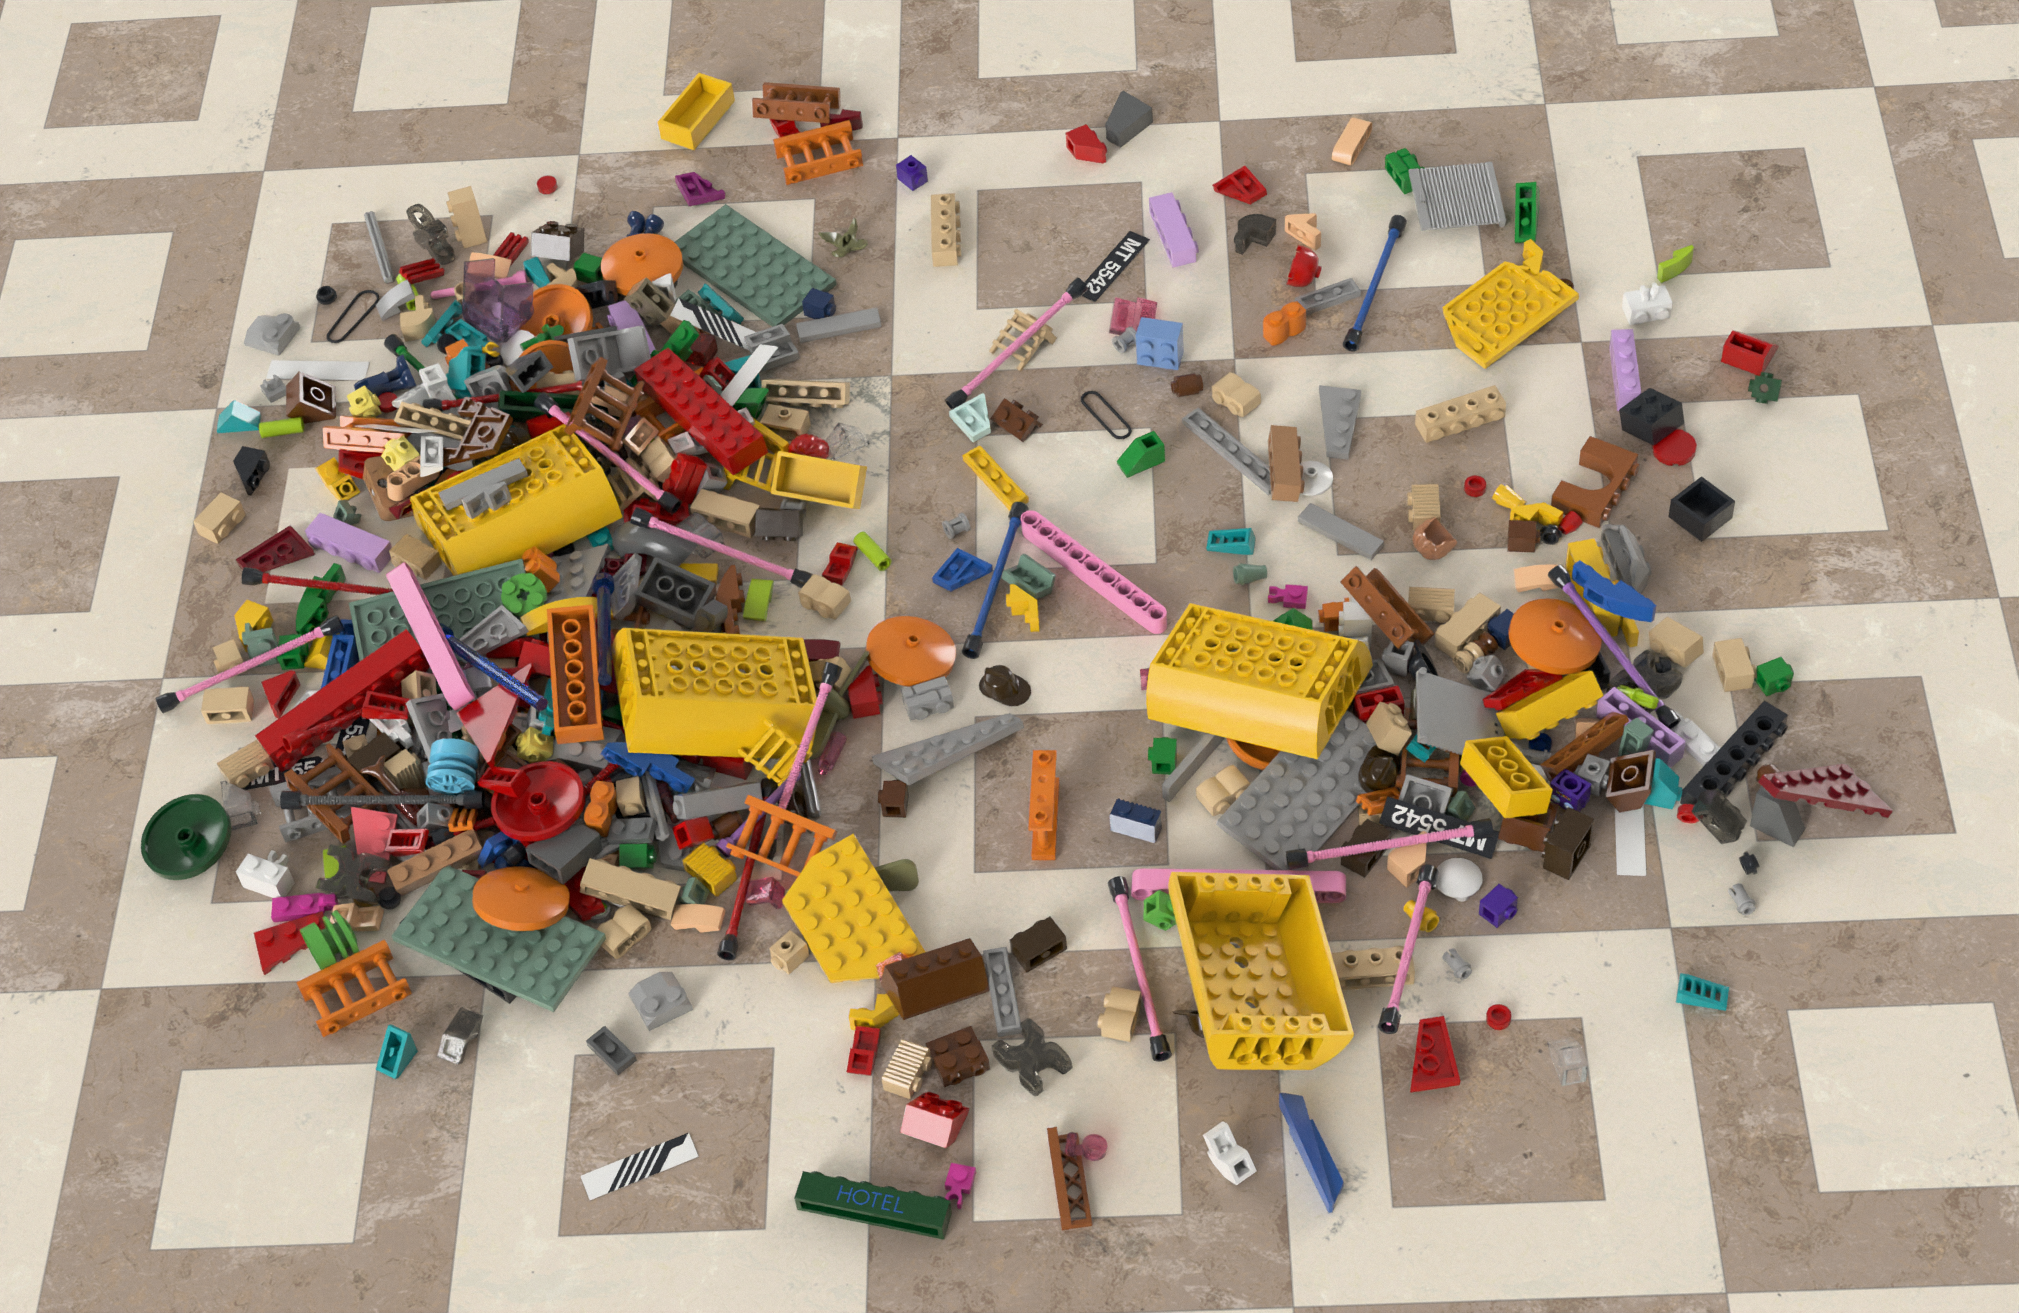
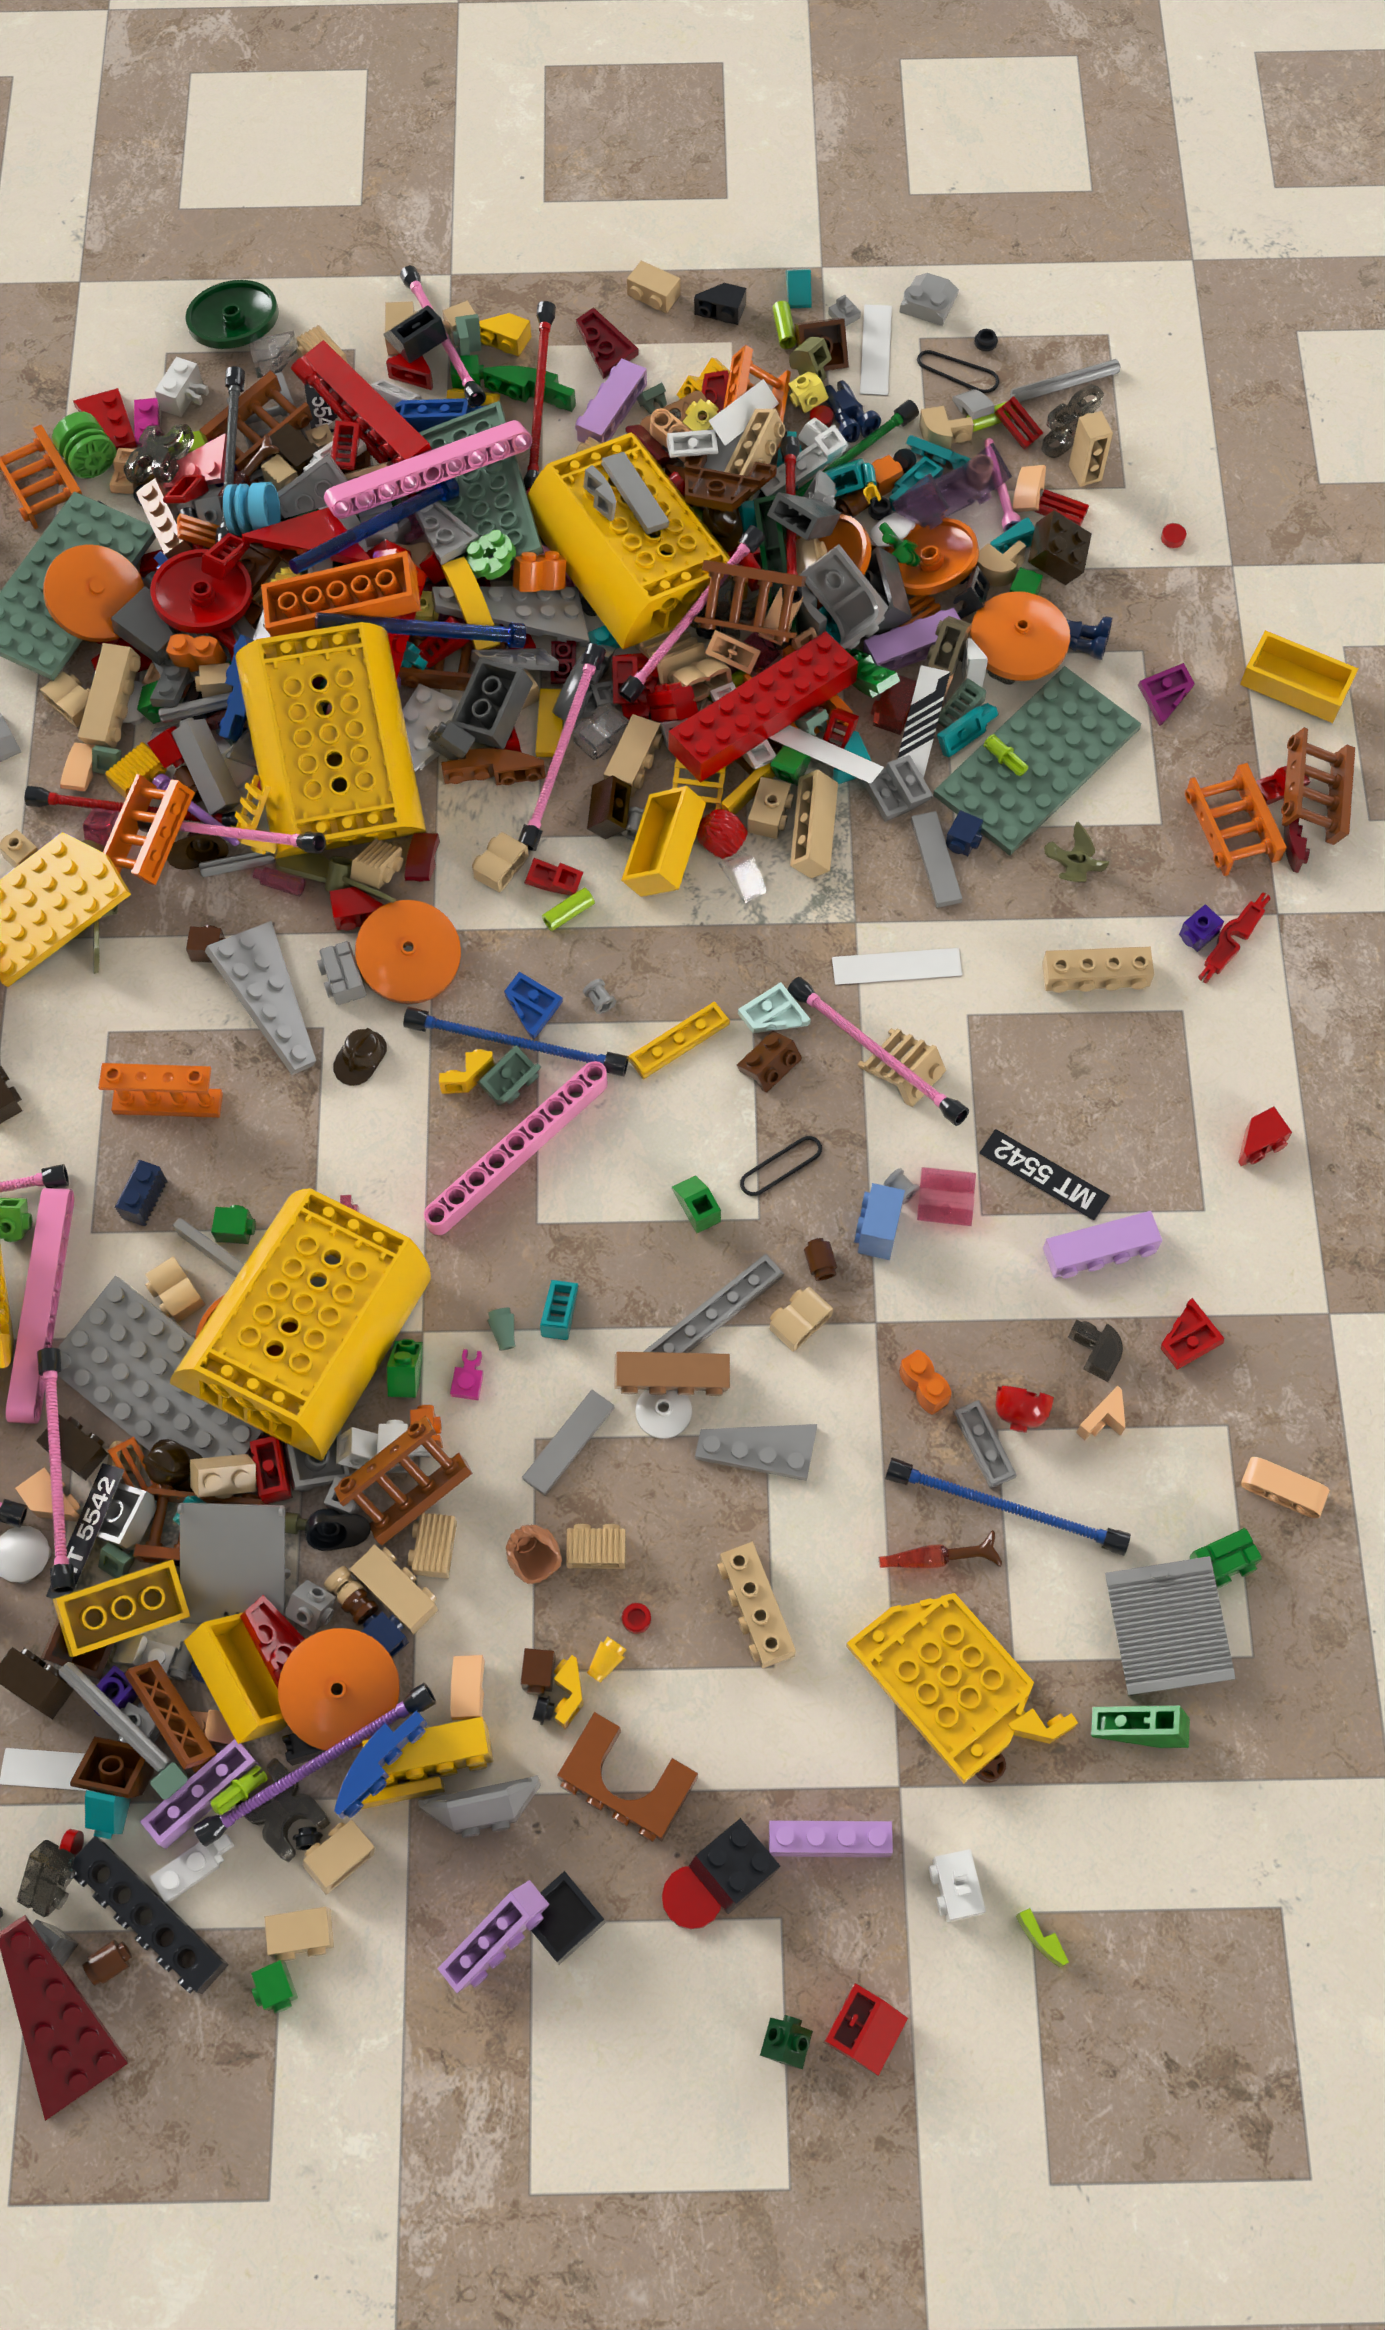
camera: 85 degrees right, 15 degrees up
(250, 674) = (417, 334): none -> black slope
(334, 396) = (811, 357): none -> olive brick
(752, 275) = (1005, 755): none -> lime axle
(758, 599) = (505, 795): lime slope -> none
(932, 164) = (1226, 945): none -> red piece
(932, 350) = (896, 966): none -> white sticker
(1127, 119) = (1314, 1187): dark grey slope -> none
(1414, 317) = (938, 1555): none -> clear red piece
(1570, 523) = (561, 1738): red hose -> none
(1592, 773) = (114, 1716): none -> light grey axle
(1724, 532) = (490, 1939): none -> lavender brick

